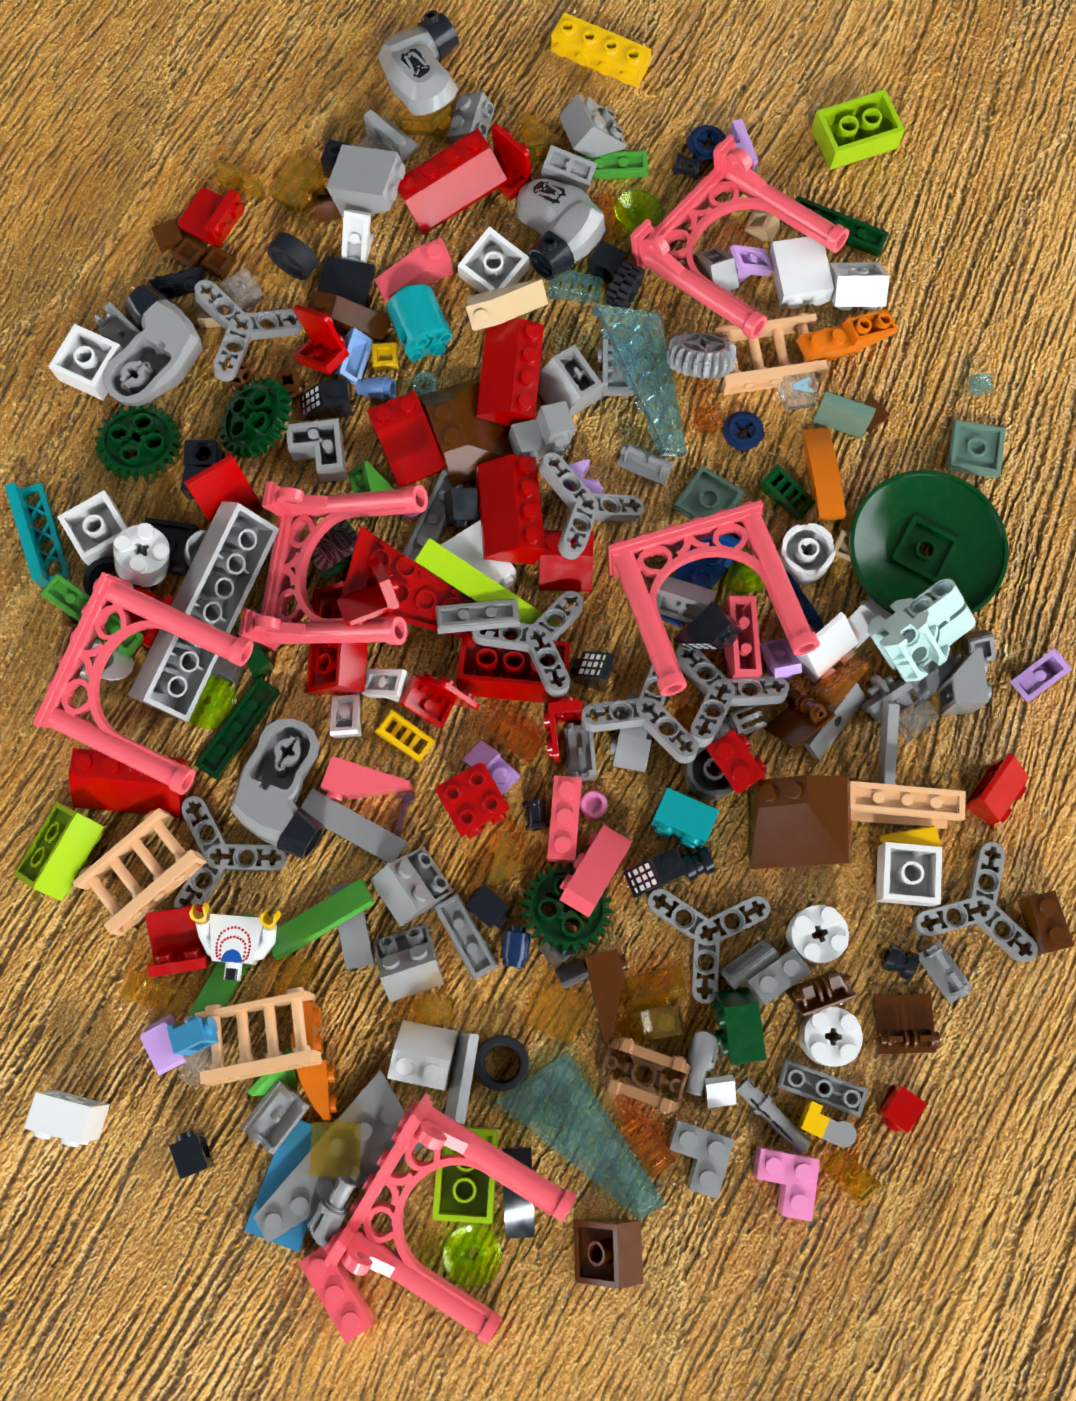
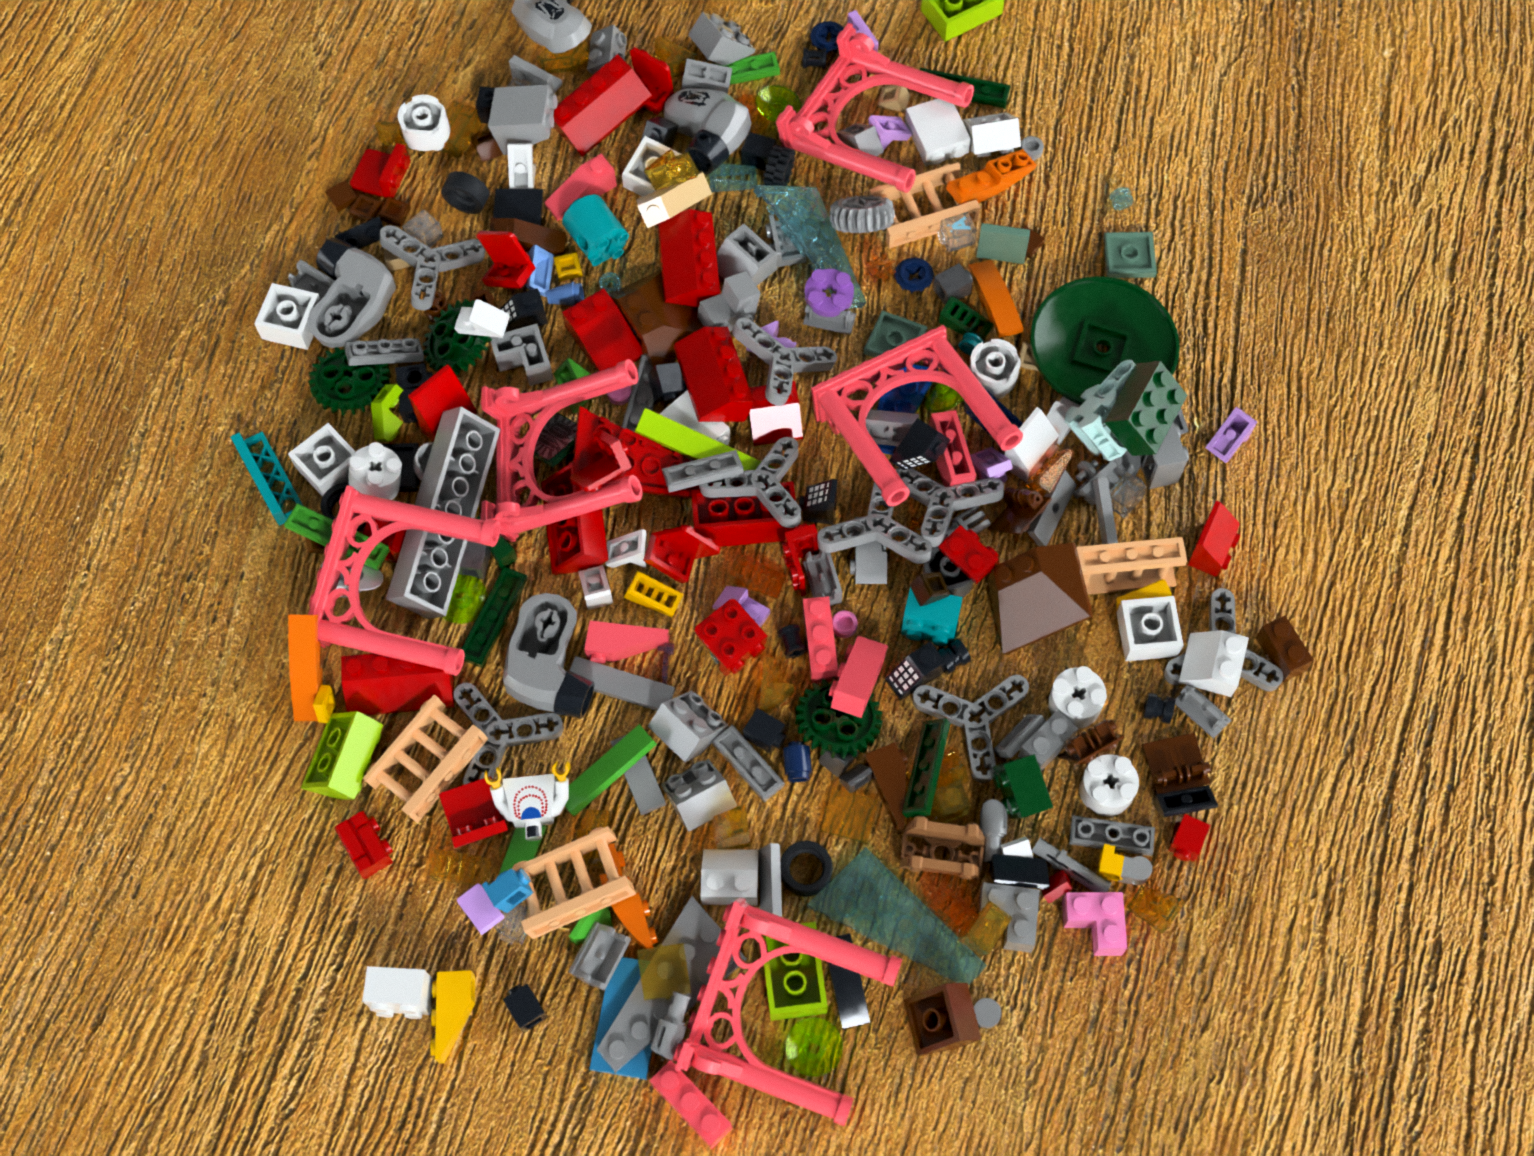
camera: 10 degrees left, 10 degrees down
(33, 753) = (304, 665): none -> orange slope
(49, 792) = (324, 703): none -> yellow tile
(64, 949) = (364, 844): none -> red brick
(123, 1132) = (454, 1003): none -> yellow slope
(165, 500) = (385, 423): none -> lime slope
(177, 419) = (383, 351): none -> light grey tile
(261, 172) = (424, 123): none -> white brick
(279, 408) = (482, 320): none -> white slope
(508, 222) = (661, 131): none -> black brick
(508, 271) = (671, 170): none -> clear yellow slope
(641, 425) = (829, 279): none -> medium lavender plate
(645, 983) = (926, 768): none -> dark green tile
(655, 1252) = (987, 1013): none -> light grey tile
(670, 1173) = (985, 929): none -> clear yellow slope
(686, 795) = (929, 588): none -> dark brown slope
(718, 1113) = (1019, 871): none -> black slope
(752, 1135) = (1058, 886): none -> red tile
(782, 449) = (954, 283): none -> flat silver brick
(787, 519) = (969, 342): none -> teal bush
(898, 307) = (1032, 146): none -> light grey tile
(906, 1070) = (1185, 801): none -> black slope
(957, 638) = (1146, 408): none -> dark green brick
(969, 925) = (1214, 661): none -> white slope

